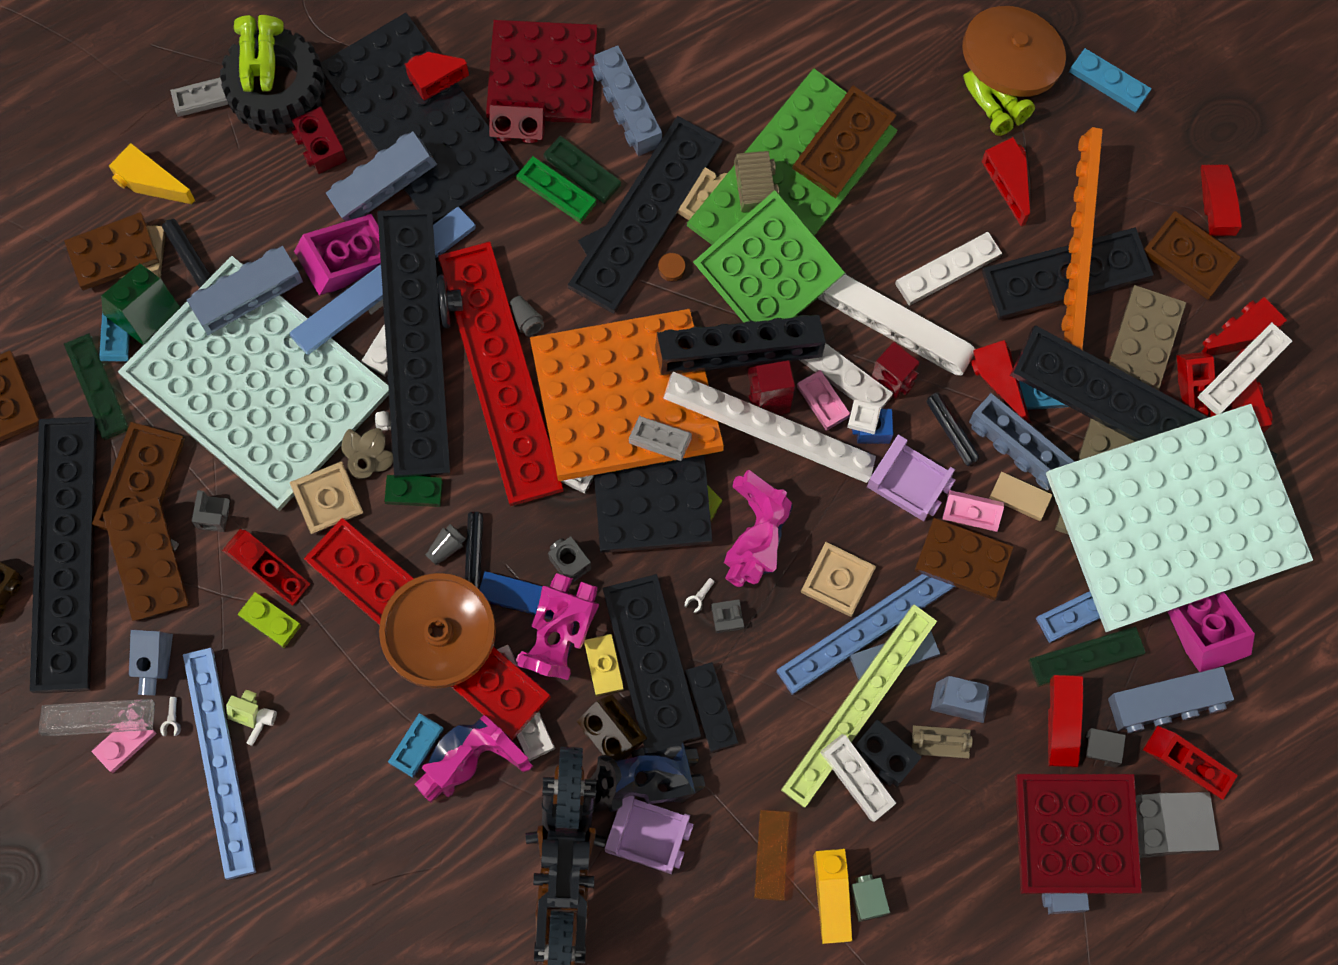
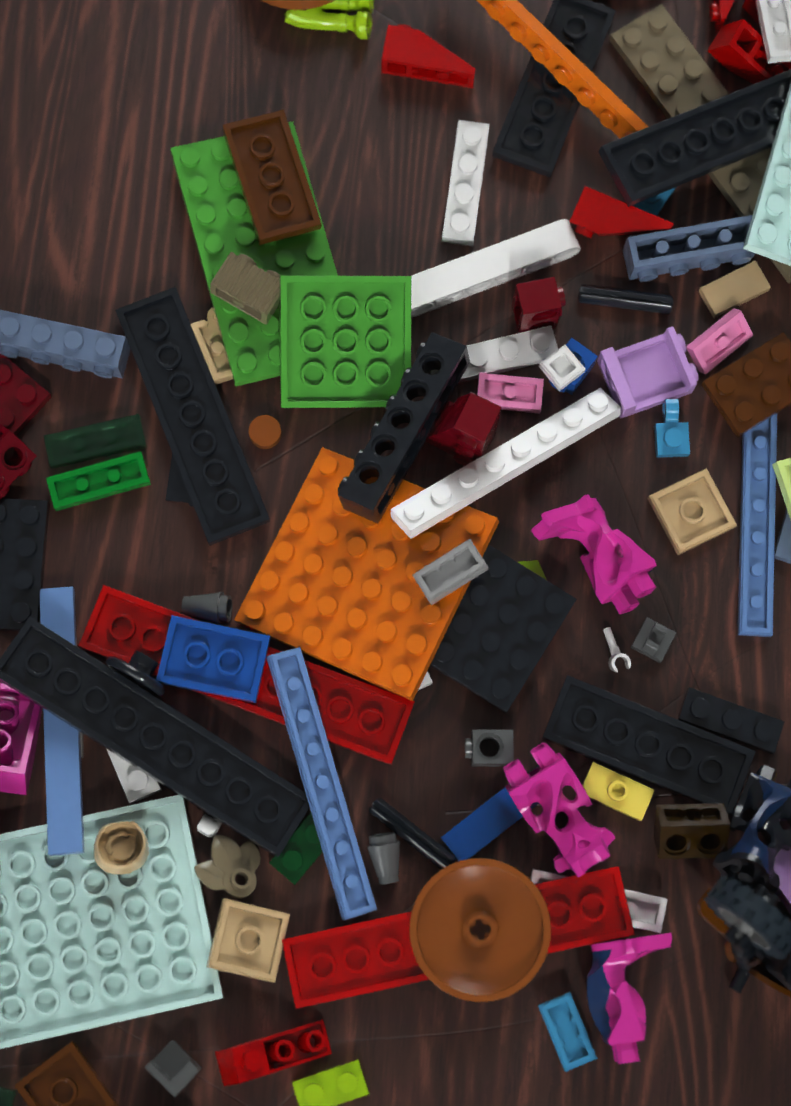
camera: 55 degrees left, 5 degrees up
(327, 374) = (121, 847): none -> tan hair
(462, 467) = (321, 783): none -> medium blue tile
(492, 341) = (213, 659): none -> blue plate
(881, 528) = (671, 435): none -> dark azure plate

